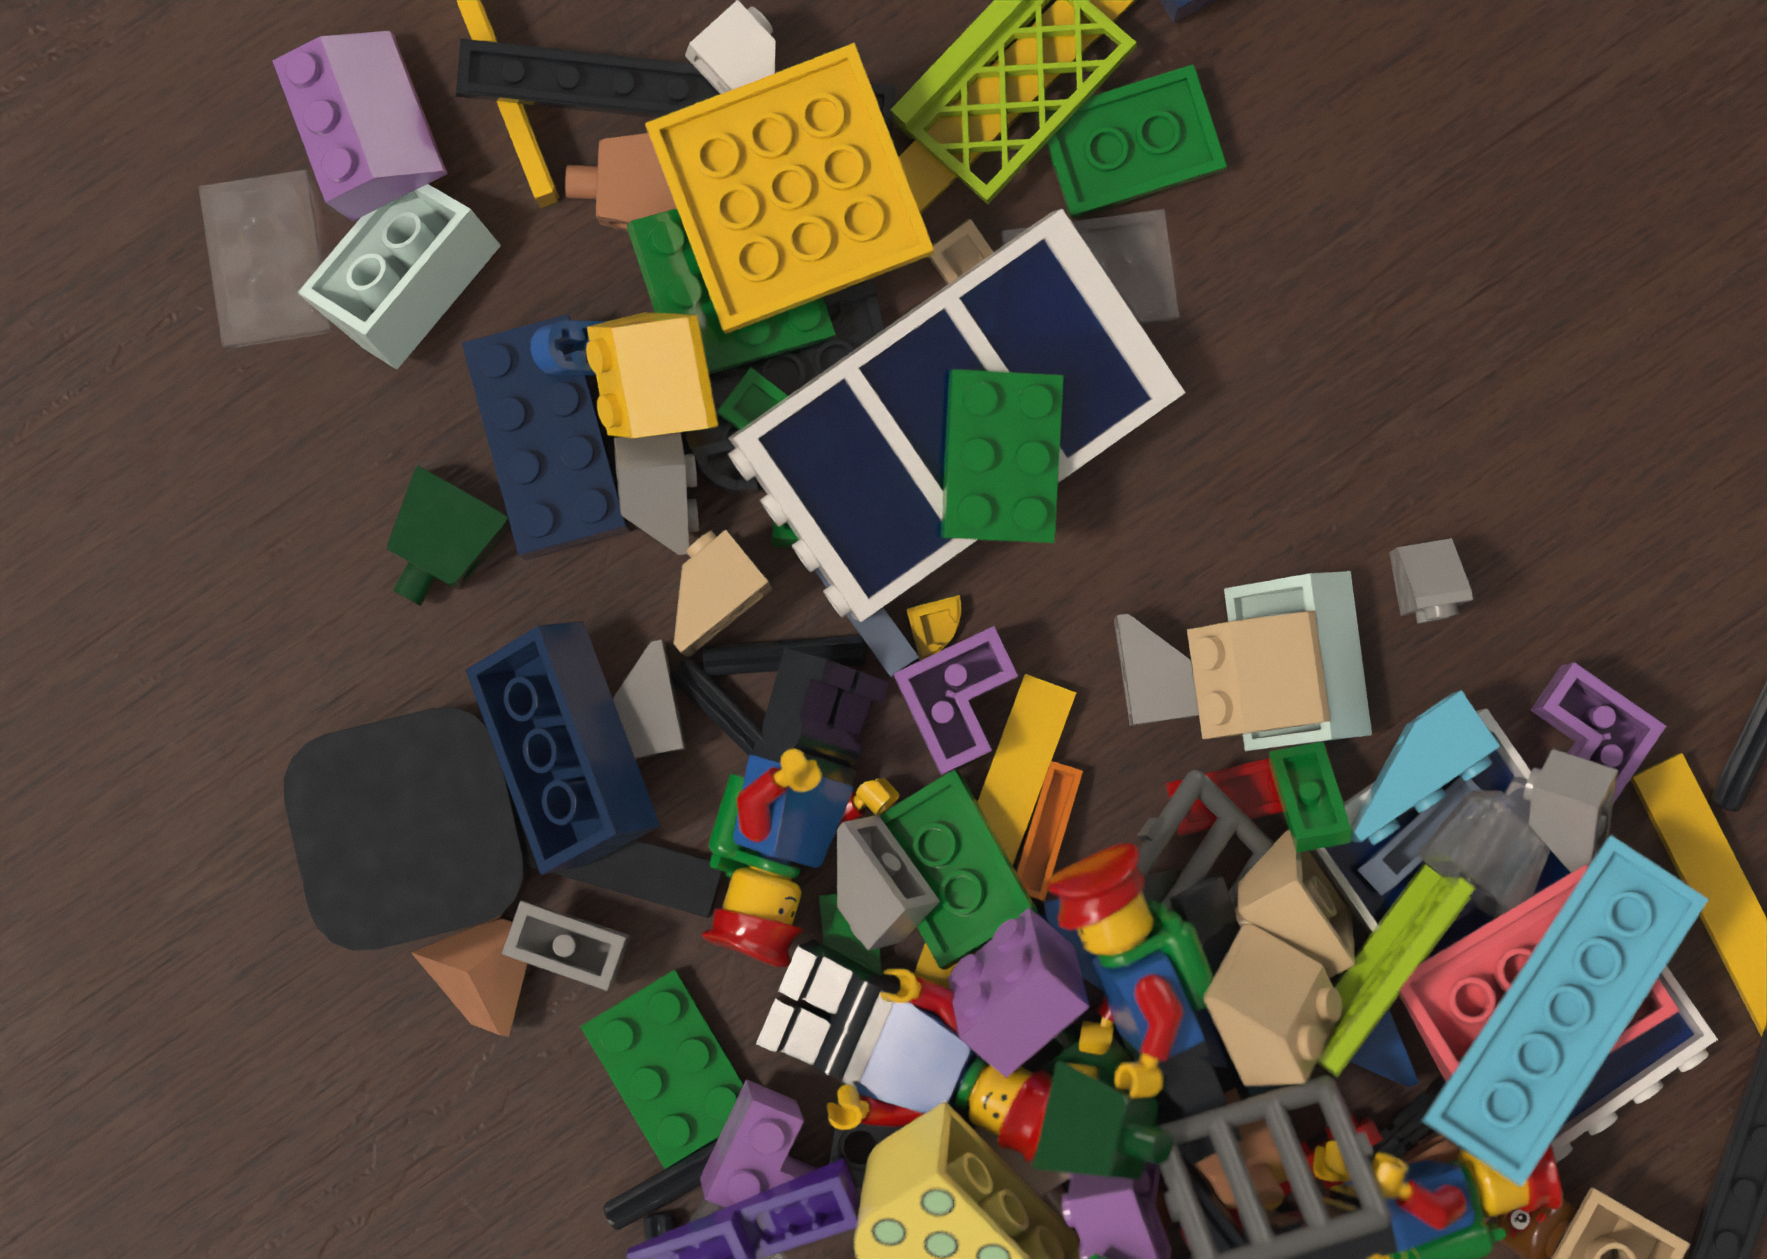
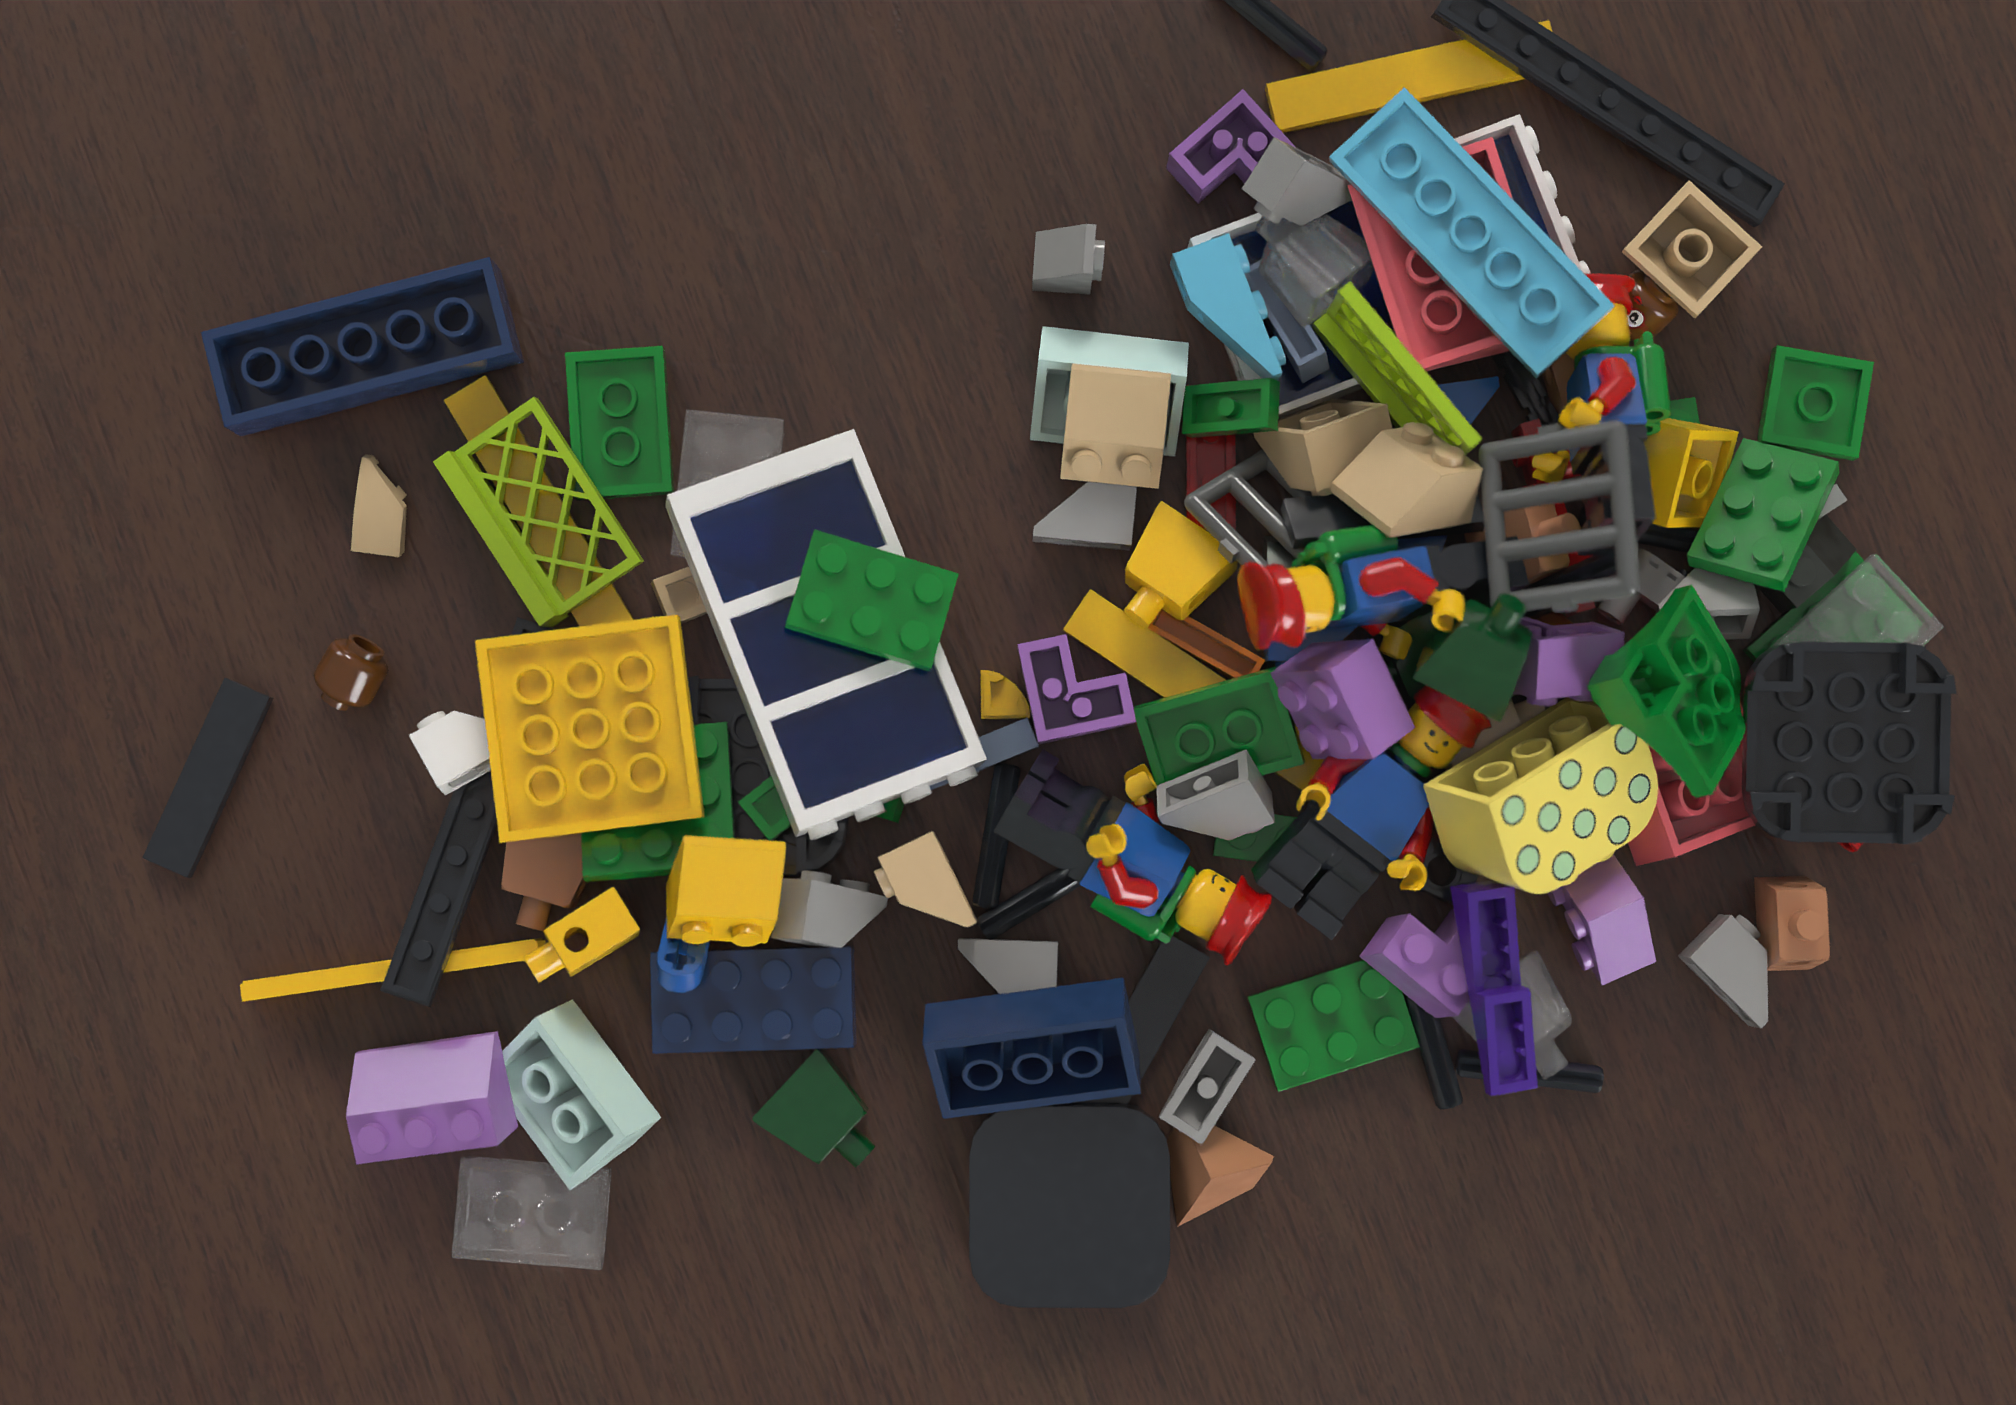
camera: 80 degrees left, 0 degrees up
(584, 260) = (604, 924): none -> yellow torso
(1120, 776) = (1173, 567): none -> yellow torso

